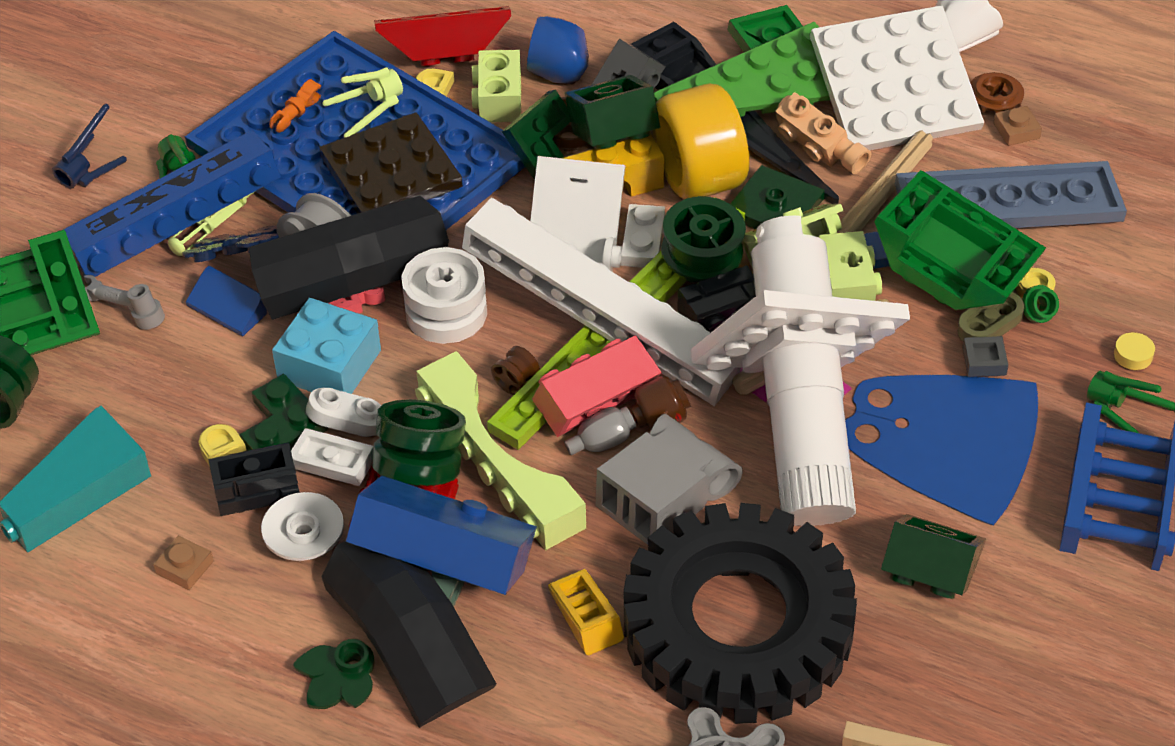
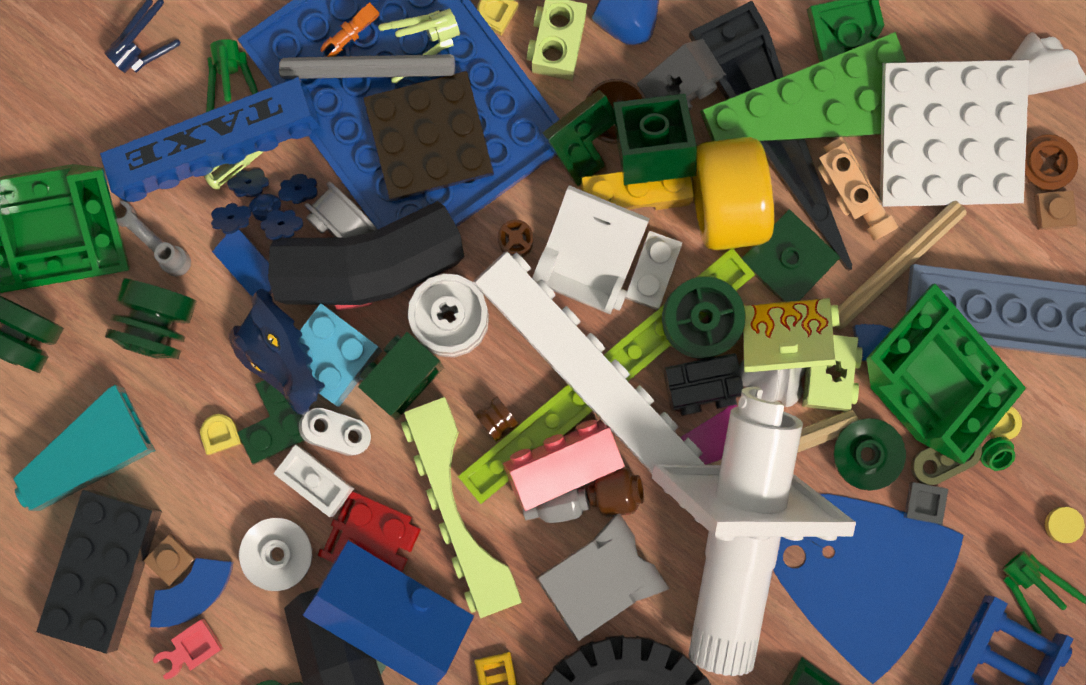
camera: 10 degrees right, 35 degrees up
(104, 578) = (99, 571): none -> black brick
(131, 345) = (150, 319): none -> dark green wheel
(213, 589) = (193, 595): none -> blue tile
(220, 631) = (192, 647): none -> coral plate
(253, 478) = (240, 499): black brick -> none
(270, 345) = (272, 350): none -> dark blue animal
(328, 121) = (367, 66): none -> light grey axle
(405, 339) = (400, 375): none -> dark green slope
(418, 442) = (389, 501): dark green wheel -> none
(923, 333) = (887, 454): none -> dark green dish

